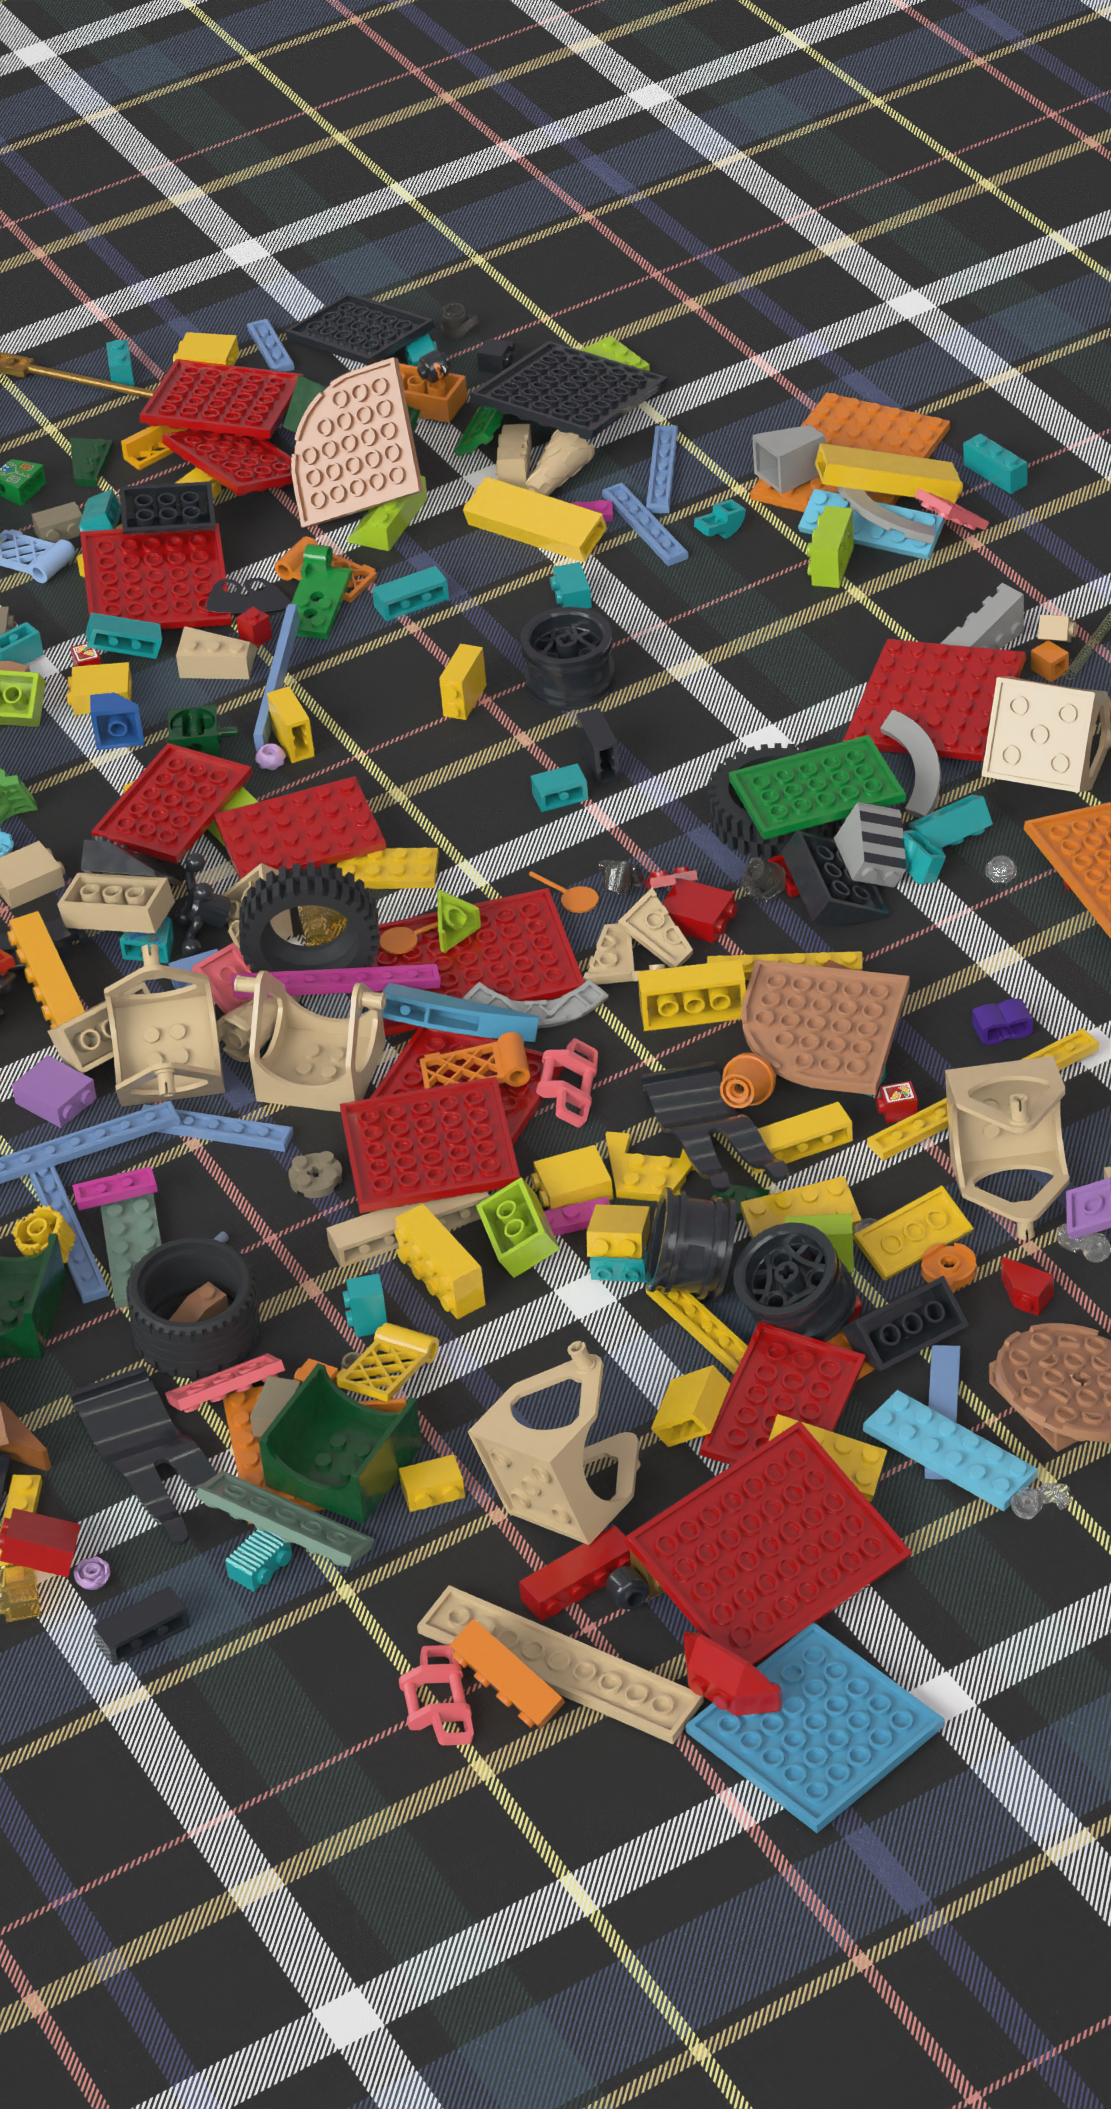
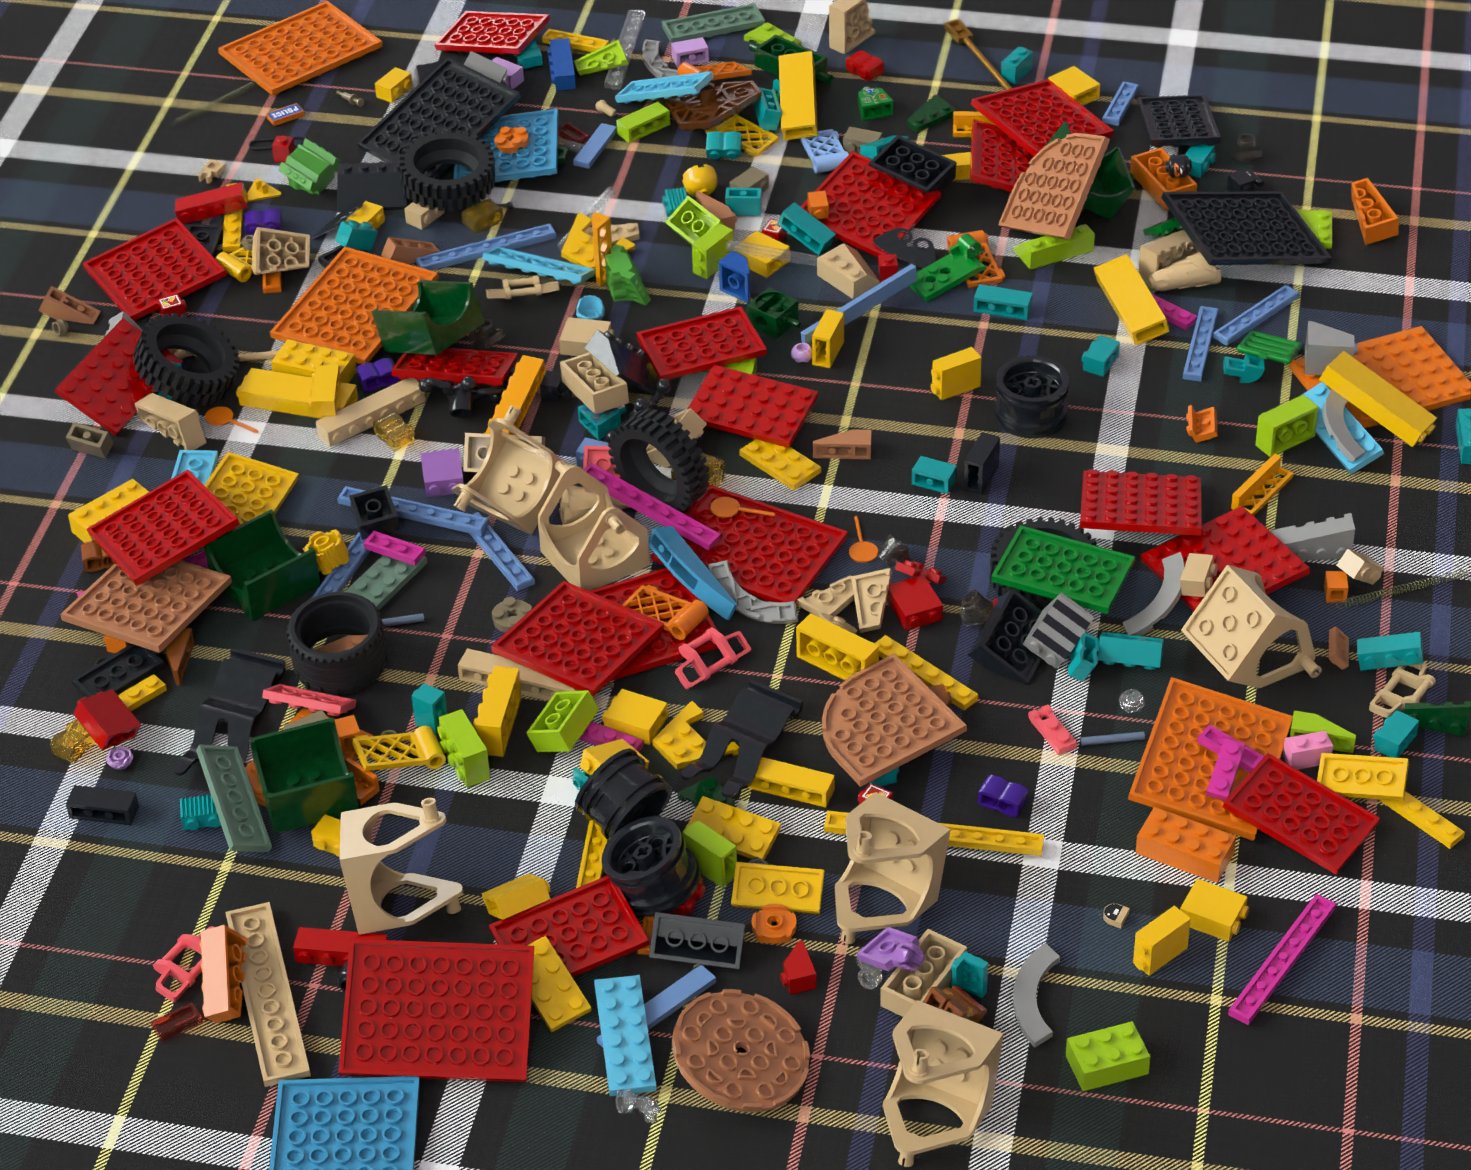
camera: 40 degrees right, 0 degrees up
(49, 1167) = (374, 511): none -> black brick
(53, 712) = (710, 249): none -> lime brick
(113, 602) = (818, 204): none -> orange brick
(127, 676) = (773, 253): none -> clear axle
(438, 812) = (844, 445): none -> nougat slope
(454, 1315) = (463, 748): none -> lime brick
(455, 920) = (759, 514): lime slope -> none
(502, 1756) = (176, 1021): none -> clear red tile
(654, 314) = (1373, 213): none -> orange wedge
(721, 488) = (1270, 347): none -> green bar
(728, 1678) = (321, 1068): red wedge -> none
(748, 592) = (1202, 424): none -> orange bracket
(753, 1074) = (796, 725): orange piece -> none
(792, 692) = (1141, 502): none -> red plate
(866, 620) = (1255, 485): none -> light orange fence
(936, 718) = (1198, 575): none -> tan brick
(951, 510) = (1393, 448): coral plate -> none
(965, 939) = (1052, 730): none -> coral plate
(1026, 912) = (1113, 738): none -> sand blue bar

